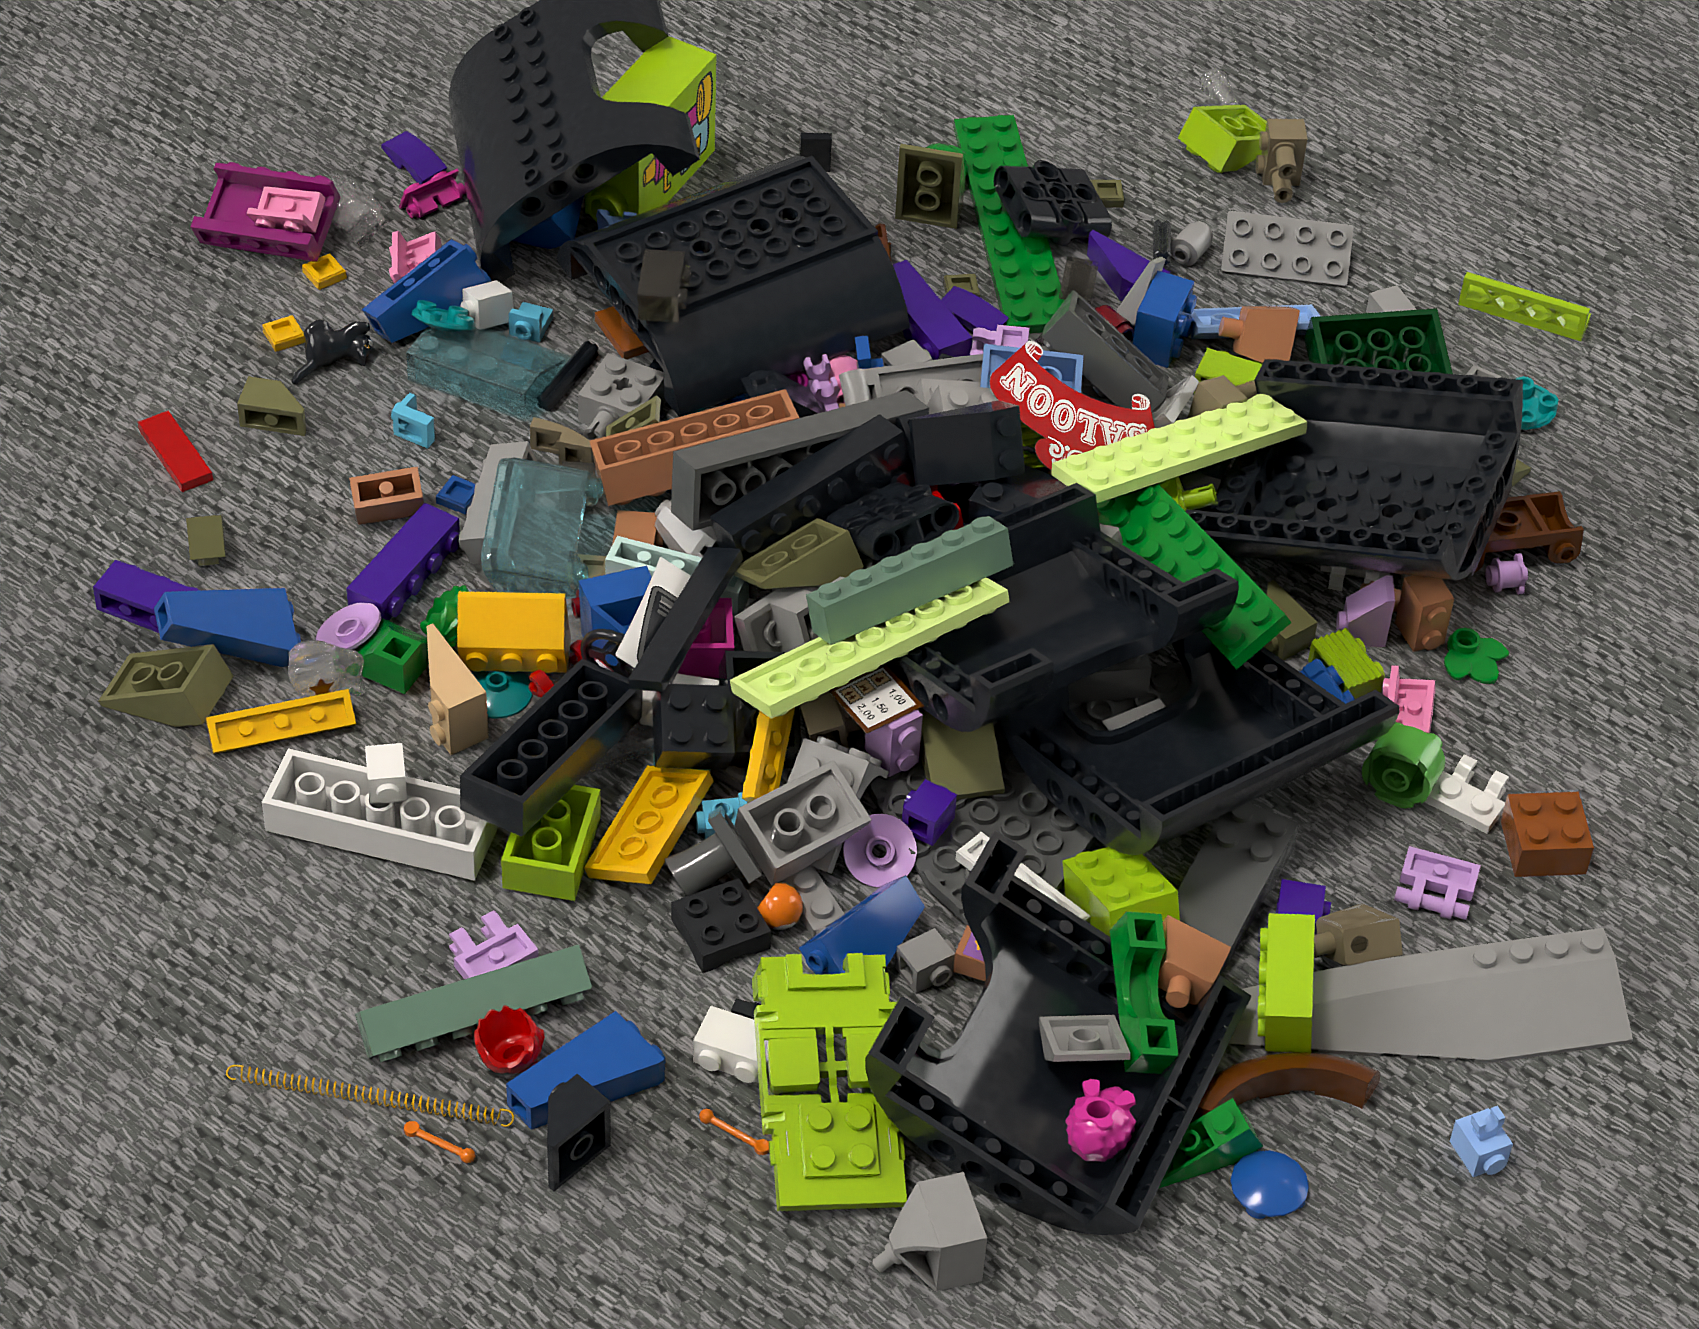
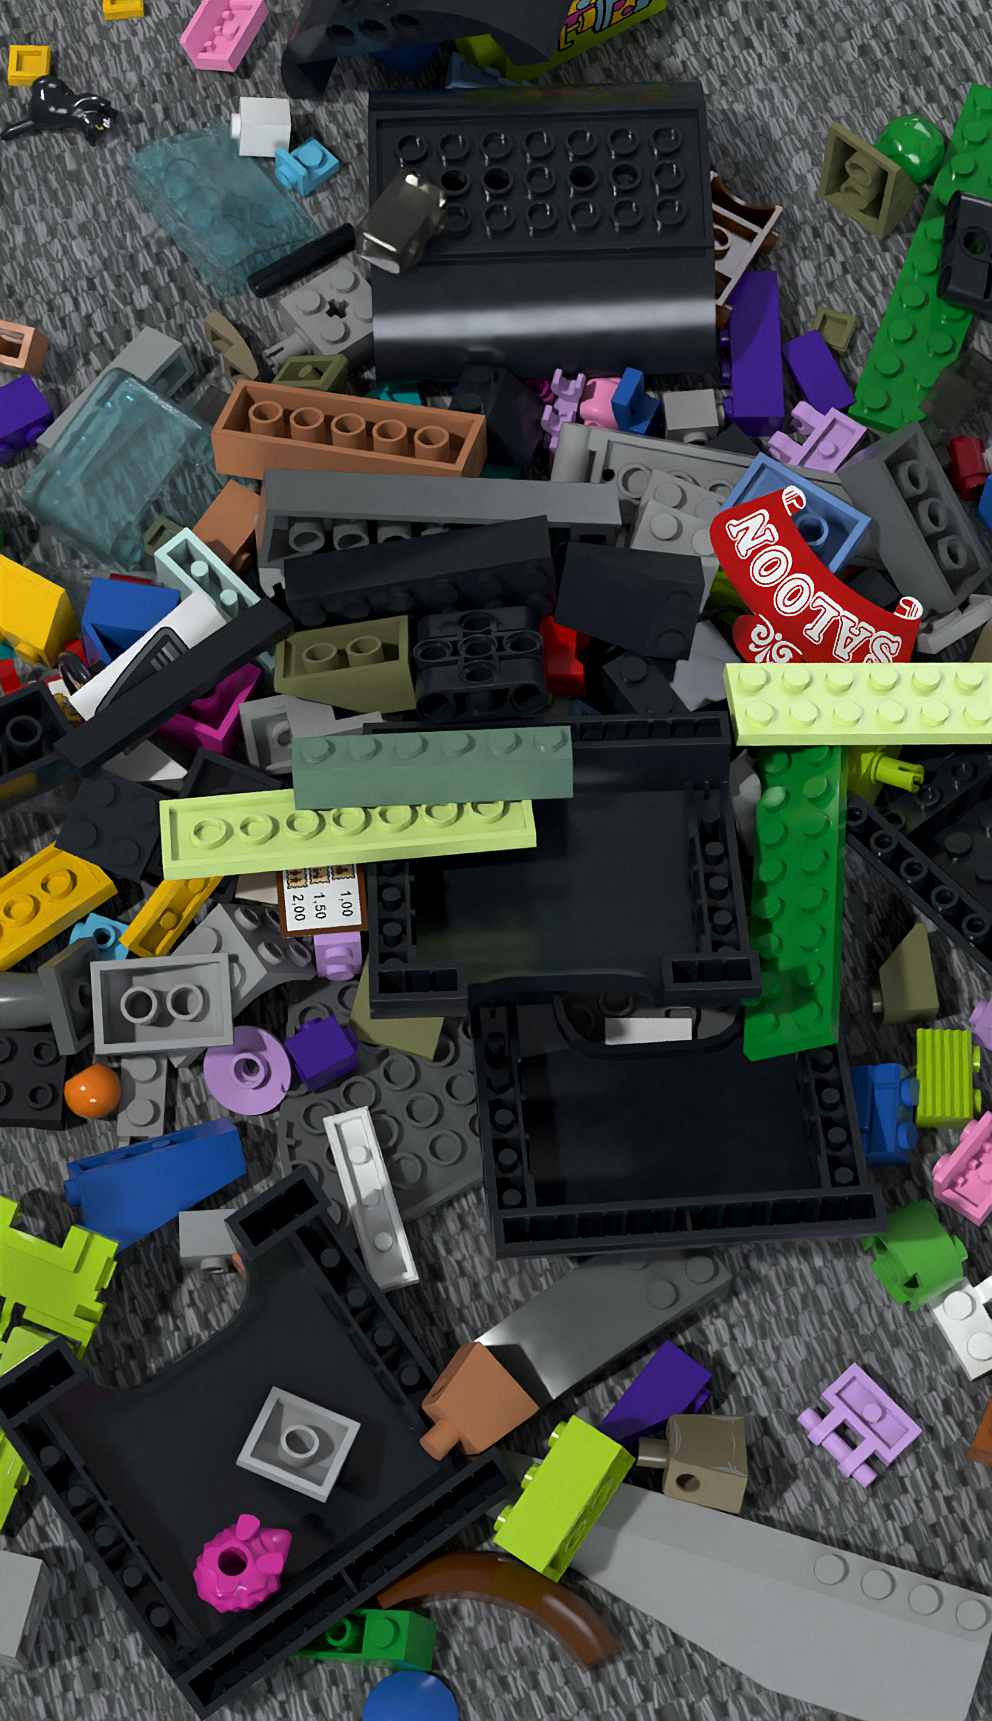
camera: 30 degrees right, 20 degrees up
(412, 424) = (87, 251): medium azure bracket -> none
(433, 280) = (200, 84): blue slope -> none
(450, 320) = (193, 129): teal dish -> none
(456, 494) = (84, 366): blue tile -> none
(818, 146) = (775, 61): black slope -> none
(1113, 882) = (459, 1286): lime brick -> none
(1137, 957) = (381, 1441): green arch -> none

